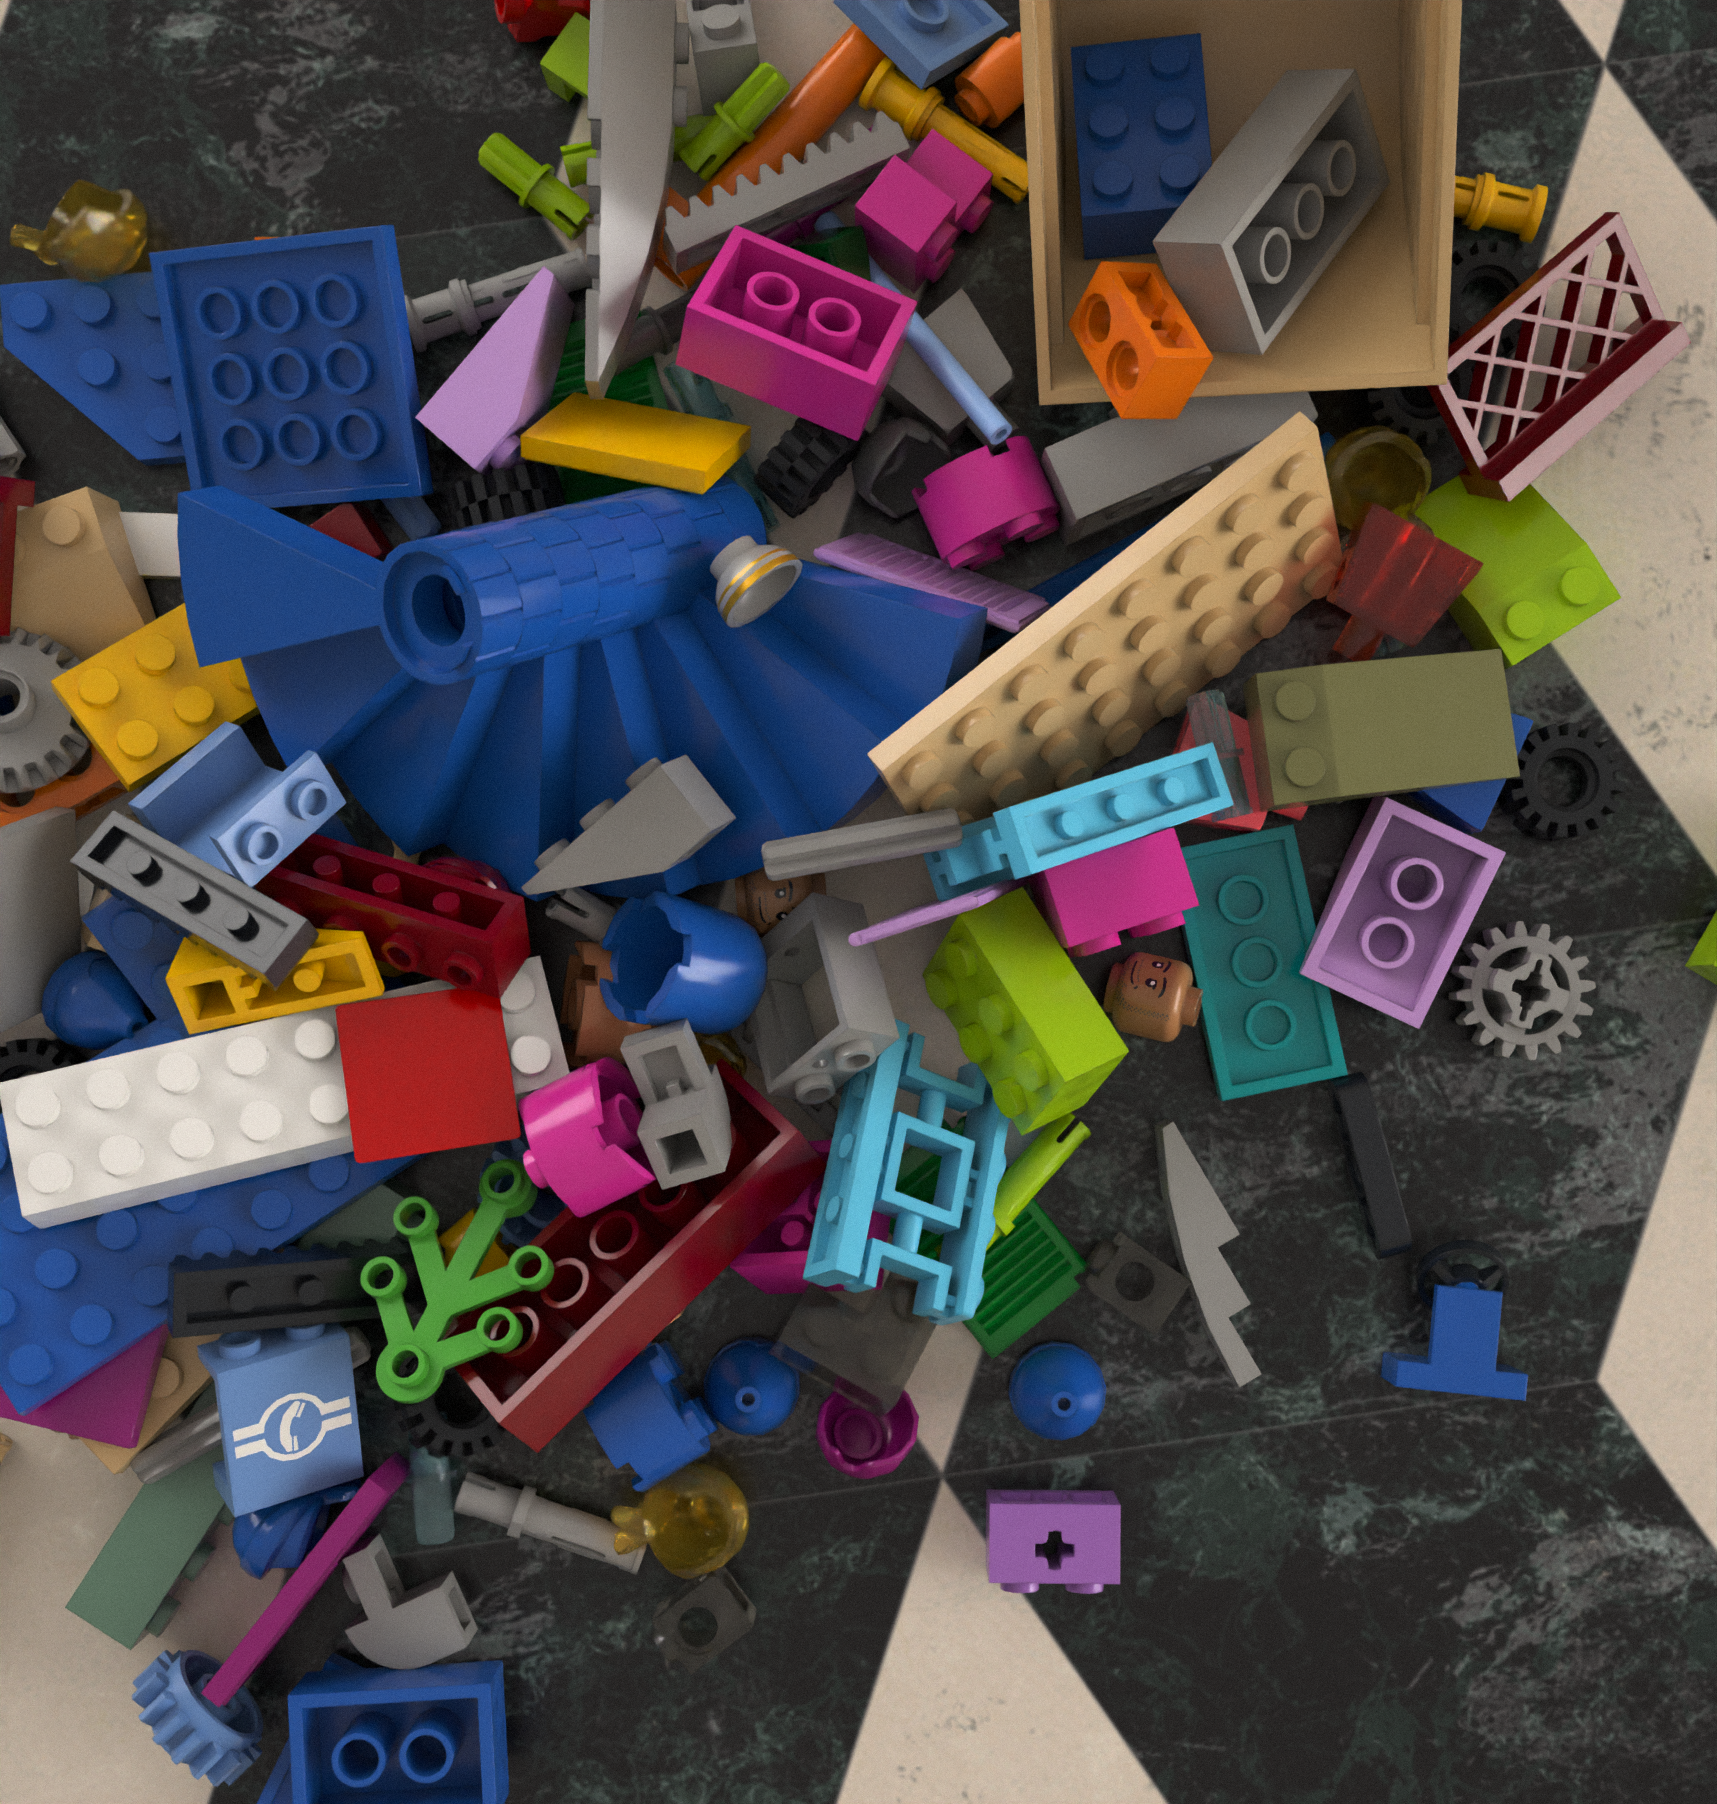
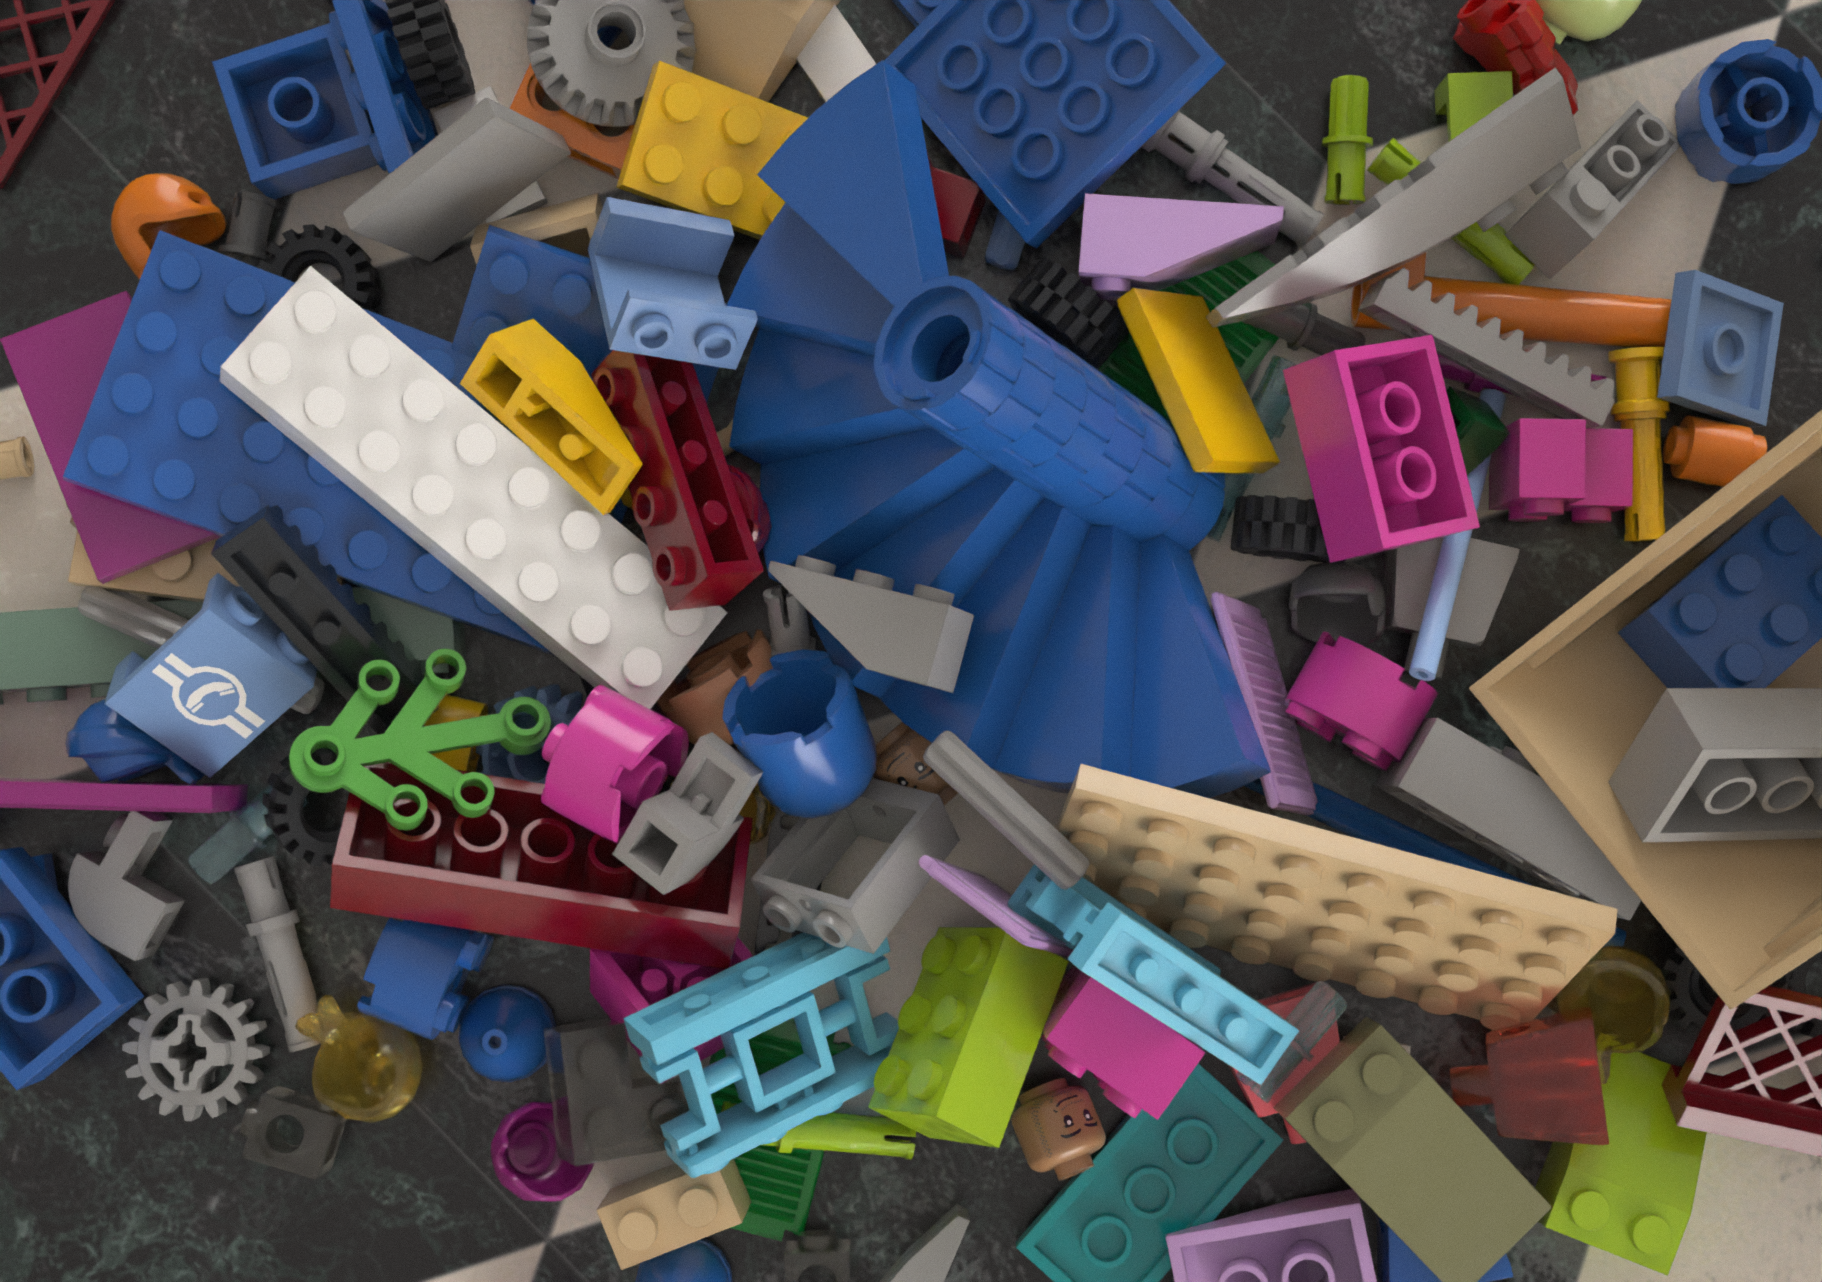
camera: 50 degrees right, 0 degrees up
(92, 1002) = (428, 281): blue helmet -> none
(195, 899) = (570, 311): gear -> none
(426, 1073) = (566, 597): red sticker -> none
(595, 1667) = (192, 1075): none -> light grey gear
(735, 120) = (1518, 265): lime axle -> none
(752, 579) = (1154, 563): light grey piece -> none
(989, 1356) = (670, 1211): none -> tan brick
(1139, 340) = (1579, 735): orange brick -> none

